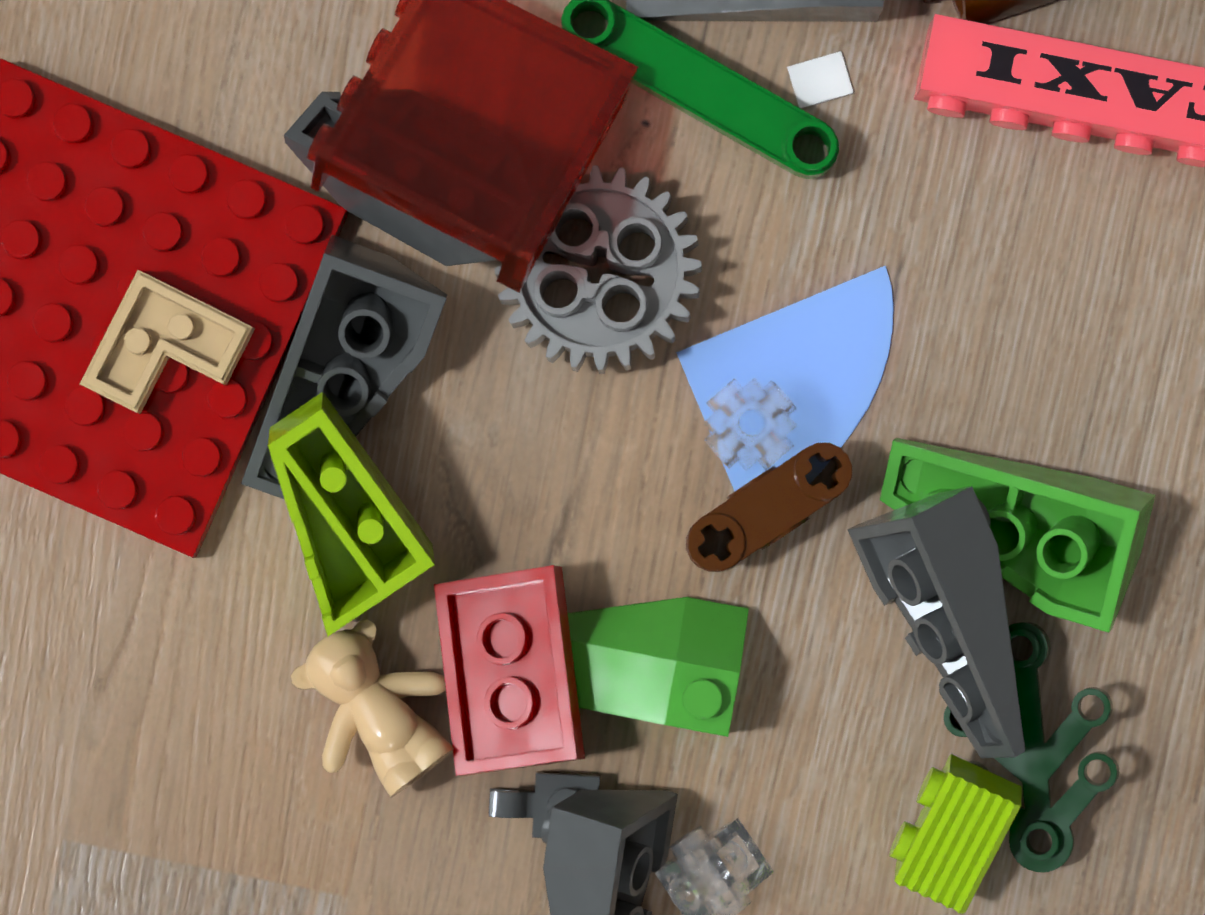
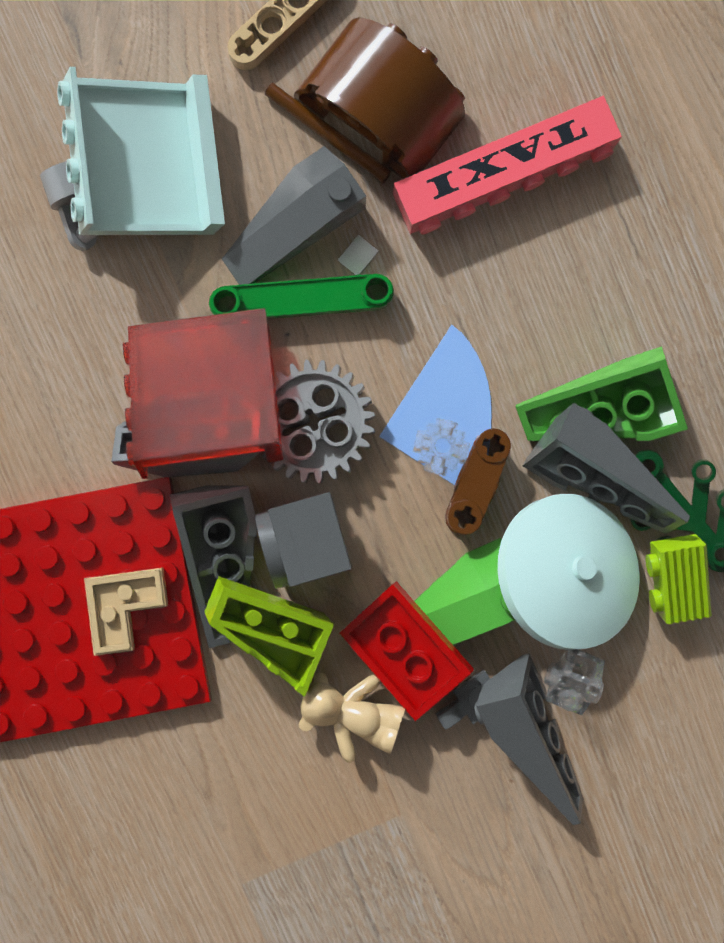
camera: 45 degrees left, 0 degrees up
(471, 422) = (302, 541): none -> dark grey piece
(808, 716) = (568, 572): none -> light aqua dish

